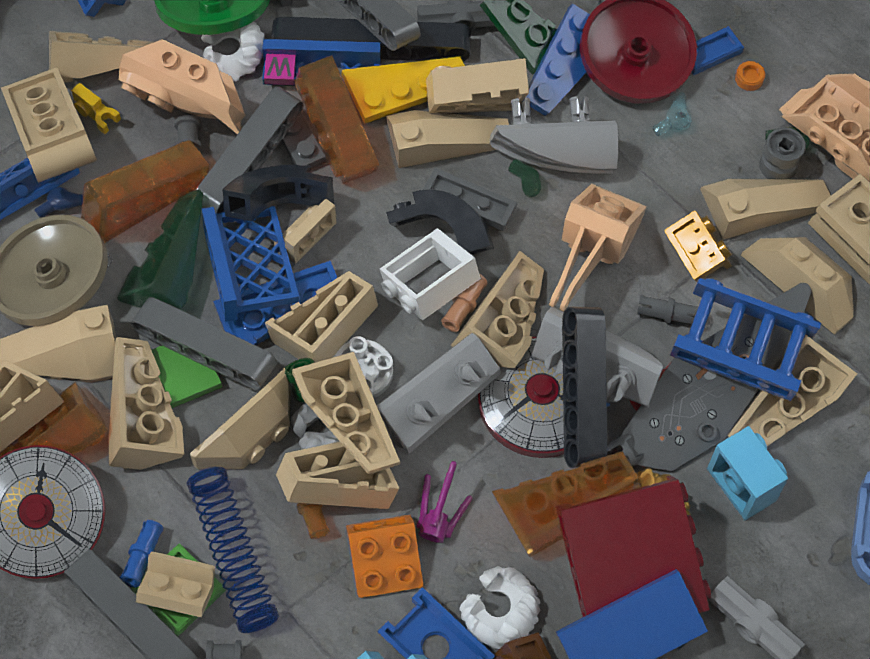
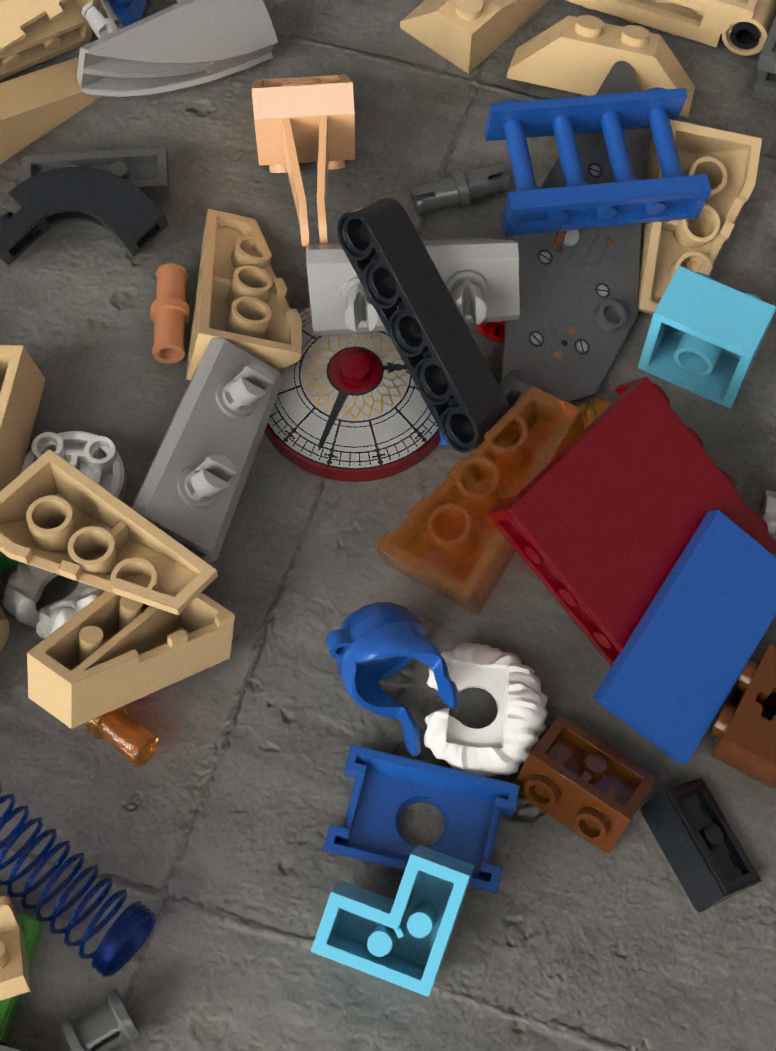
camera: 30 degrees left, 0 degrees up
(385, 556) = (266, 729): orange bracket -> none
(419, 257) = (83, 259): white window -> none
(435, 524) = (308, 643): magenta plant -> none
(464, 544) = (377, 645): none -> blue hair
(529, 177) = (161, 111): clear green arm -> none
(698, 246) = (444, 90): bracket -> none

